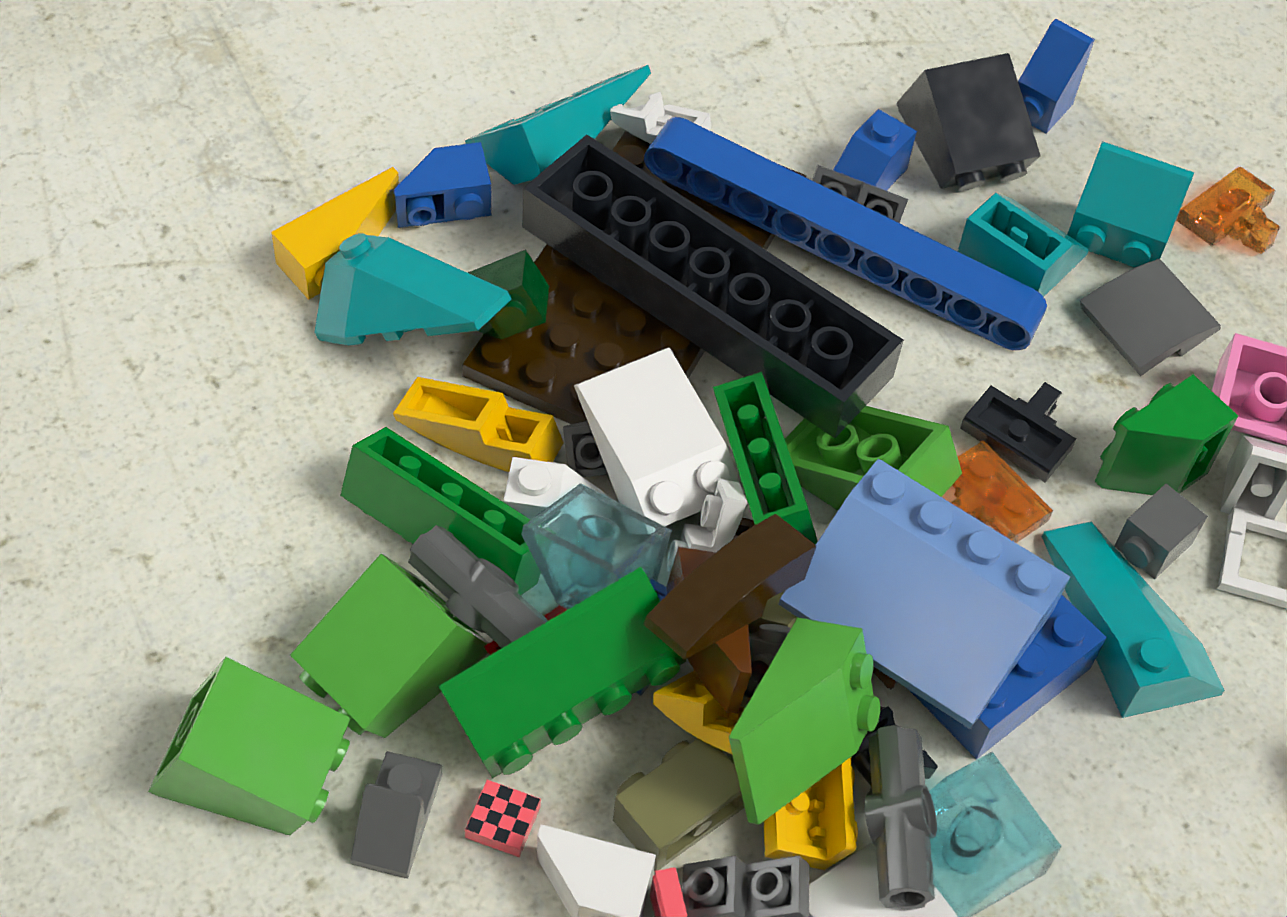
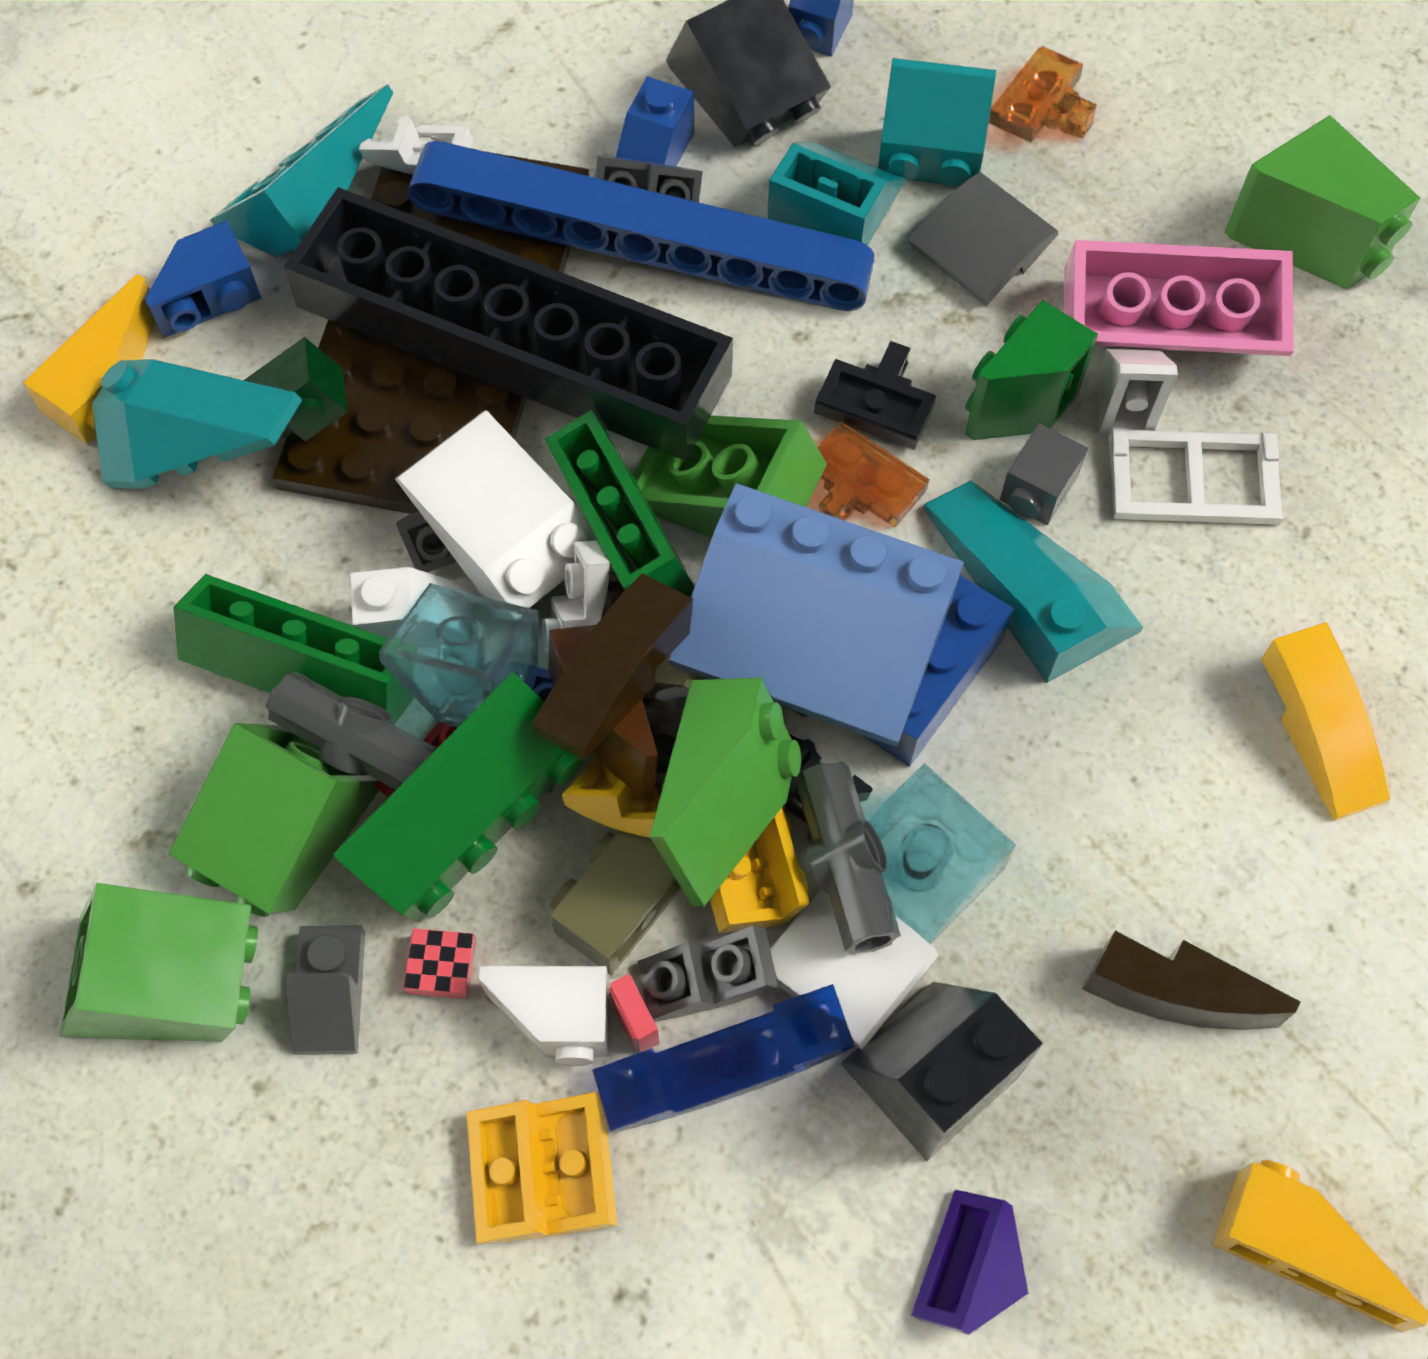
camera: 10 degrees left, 10 degrees up
(478, 423) = (306, 540): yellow slope -> none

